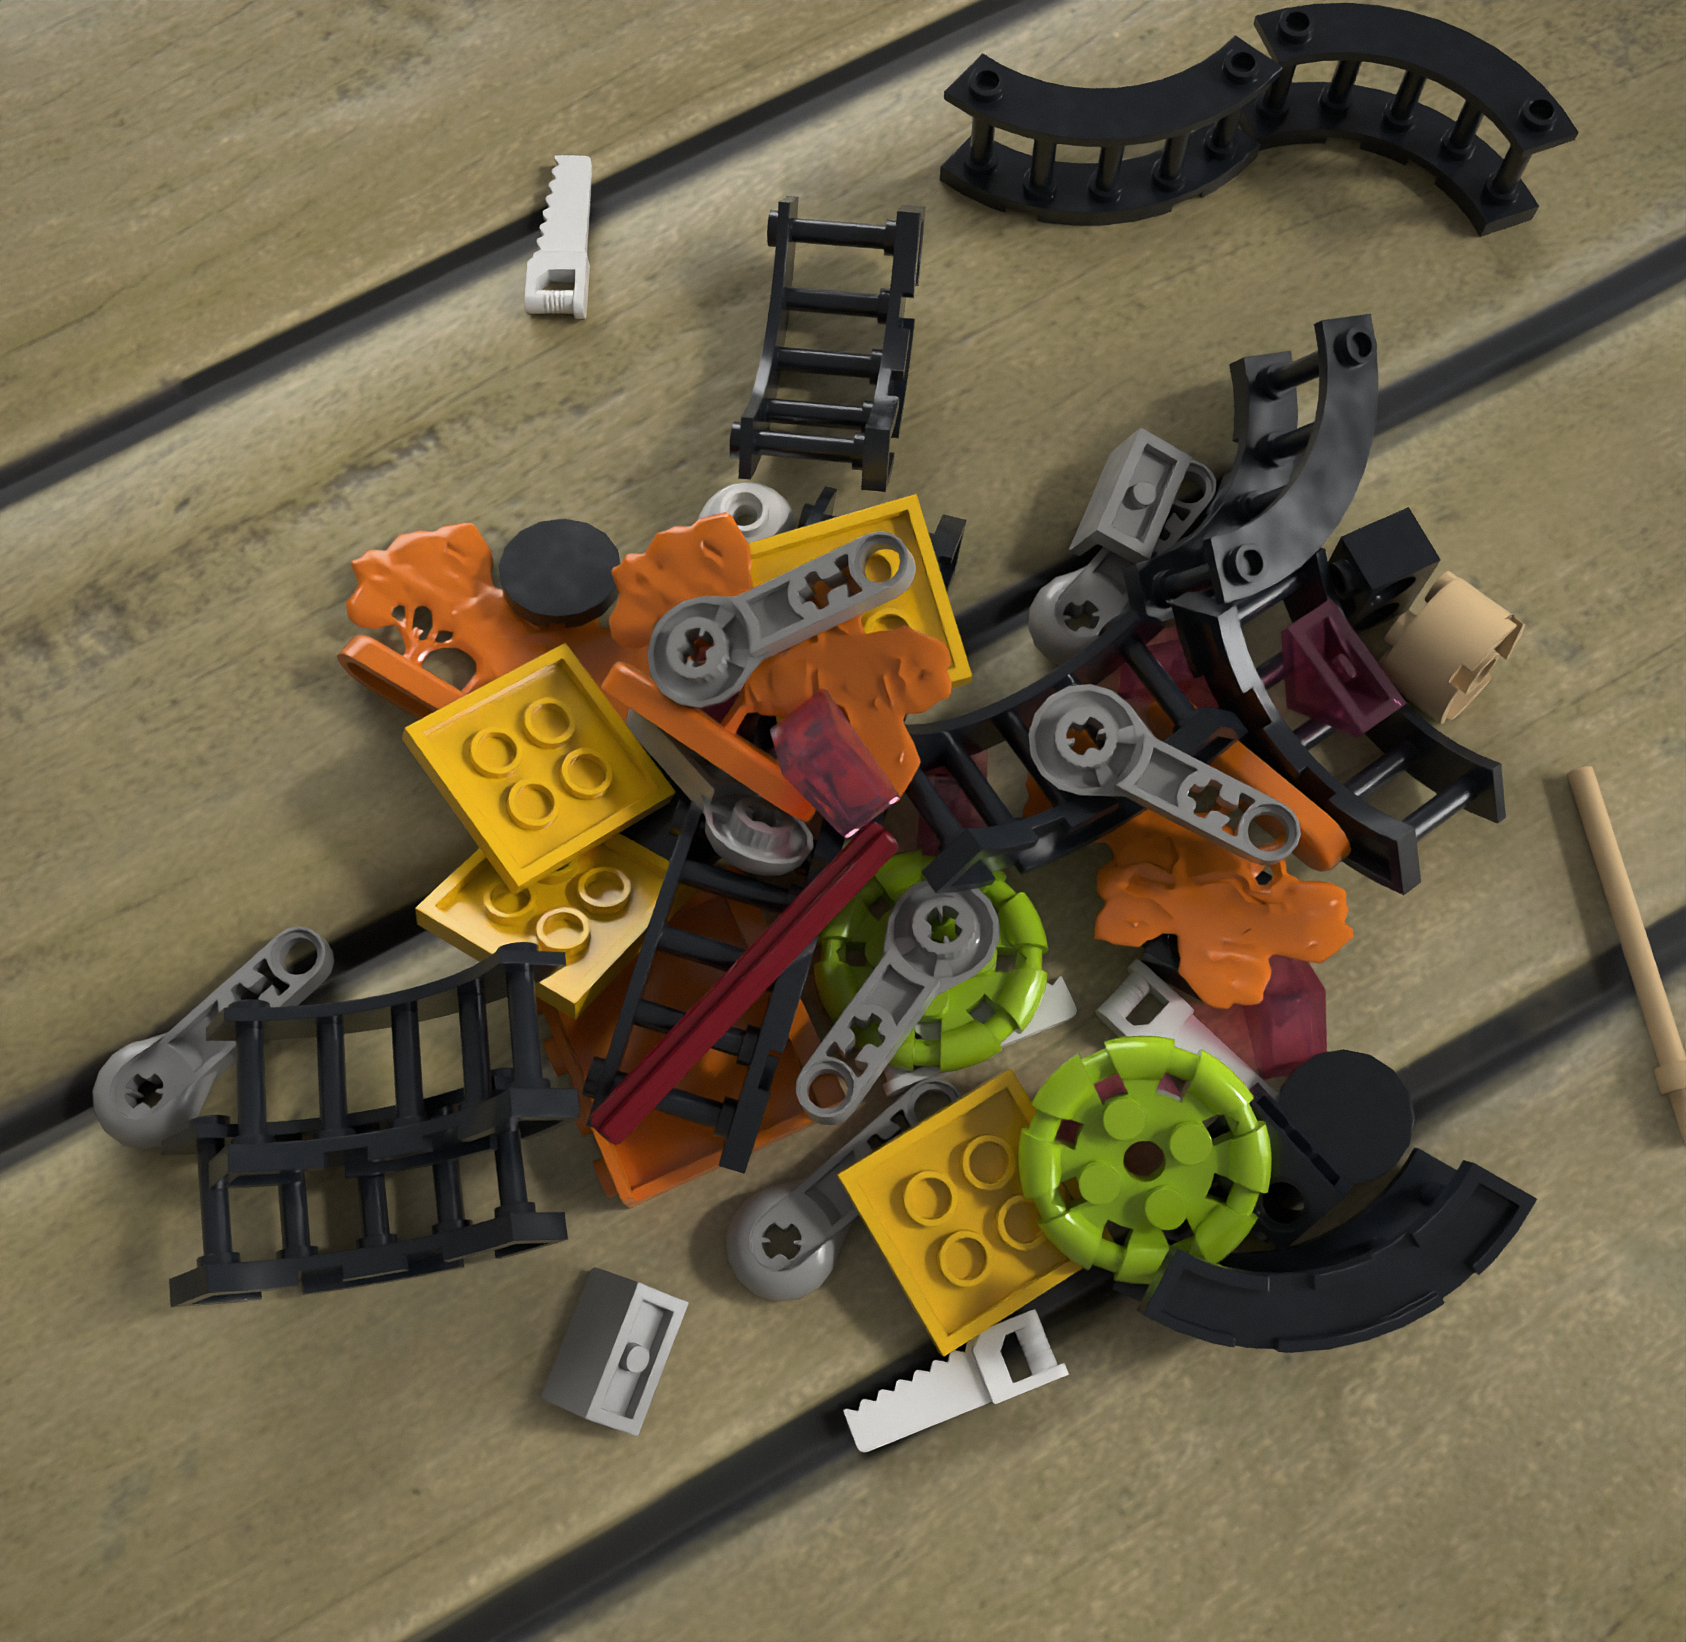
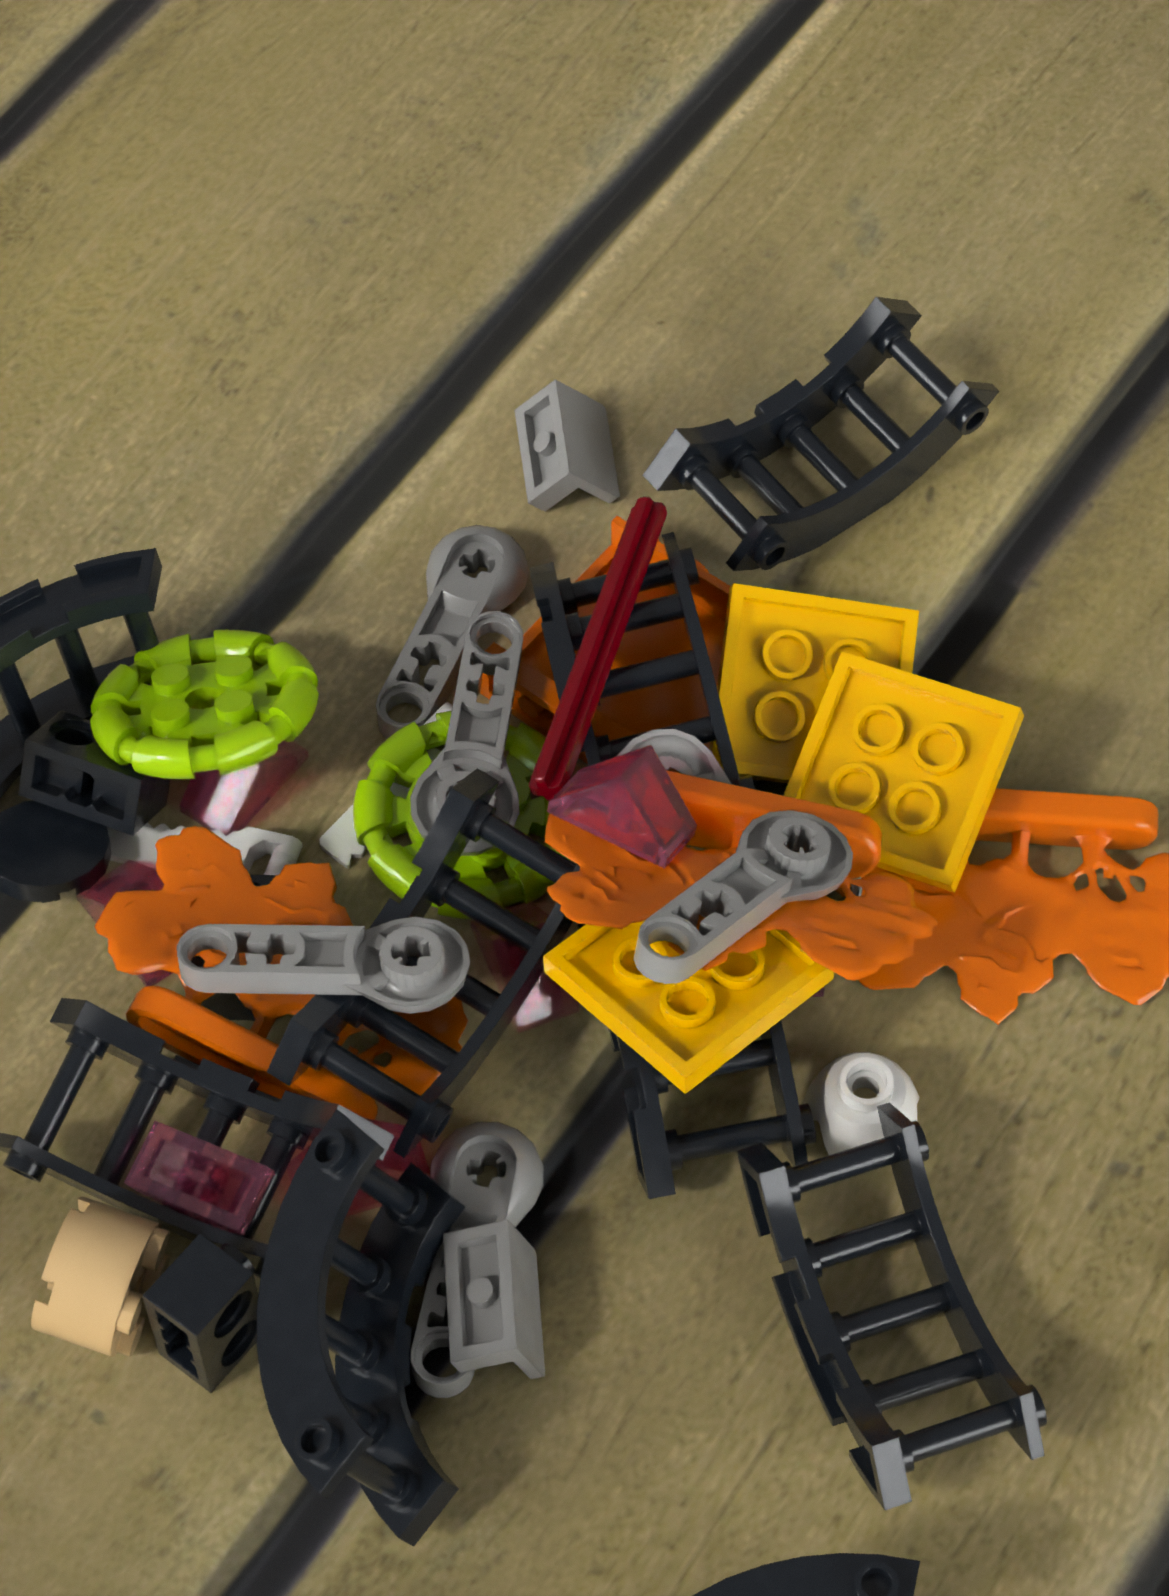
camera: 150 degrees right, 15 degrees down
(185, 1058) = (1037, 500): light grey beam -> none
(413, 1138) = (746, 479): black fence -> none
(559, 573) = (1013, 981): black tile -> none
(955, 1216) = (354, 627): yellow plate -> none
(956, 1385) = (281, 547): white piece -> none

